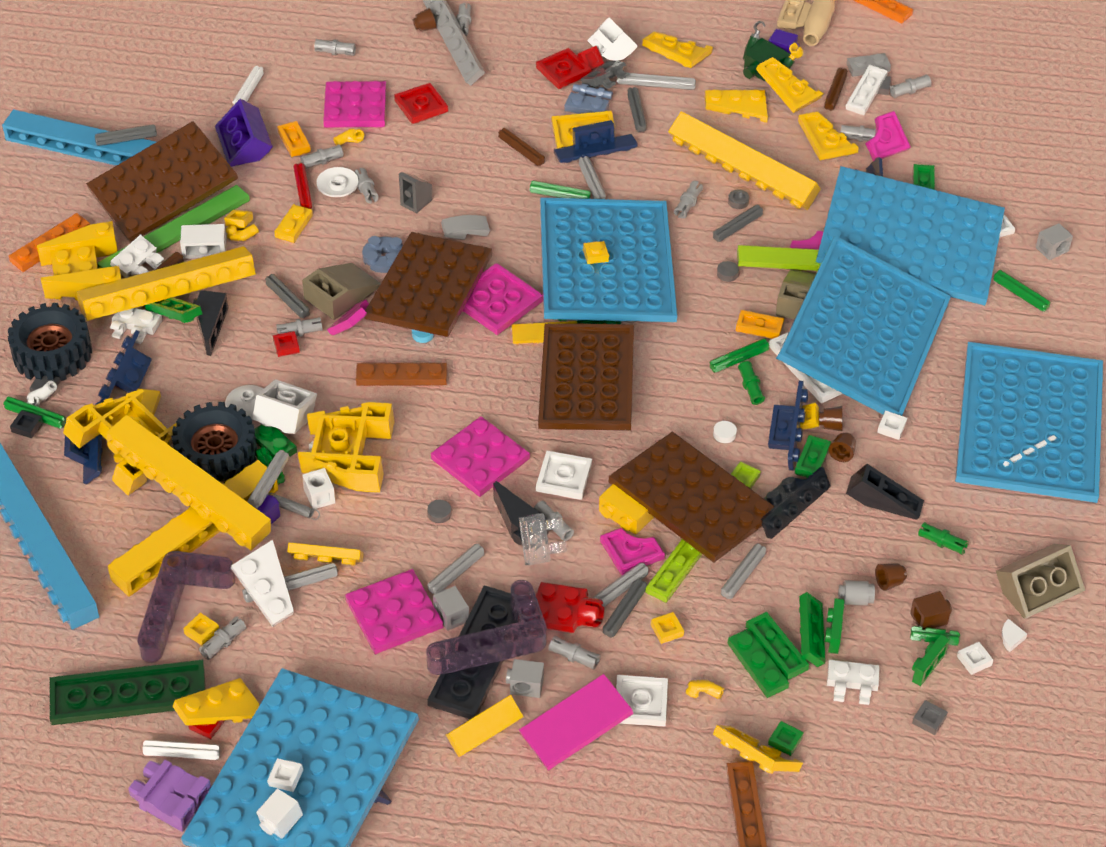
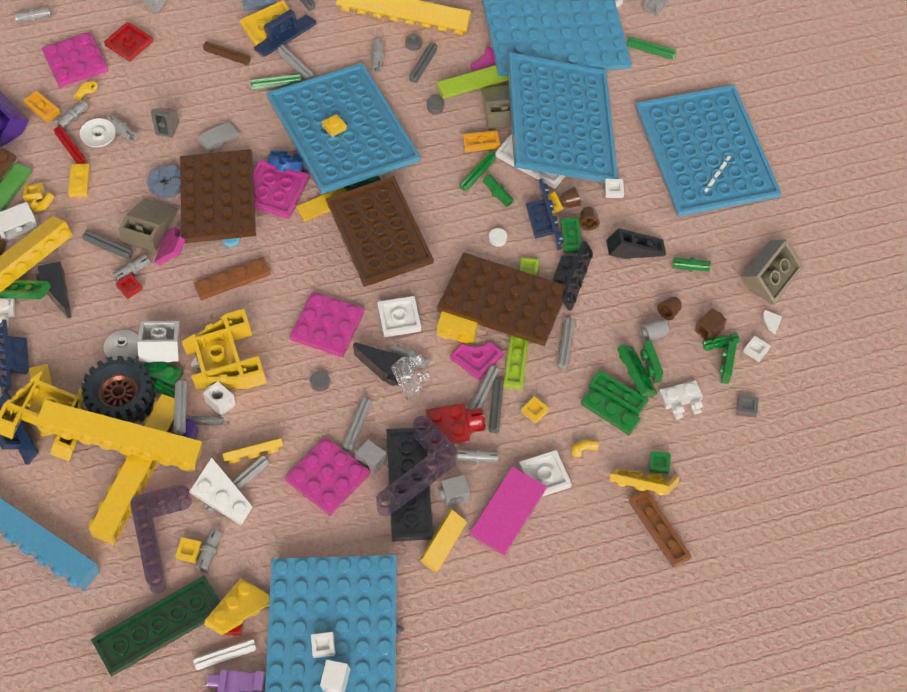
camera: 25 degrees left, 10 degrees up
(521, 271) = (284, 161): none -> blue plate

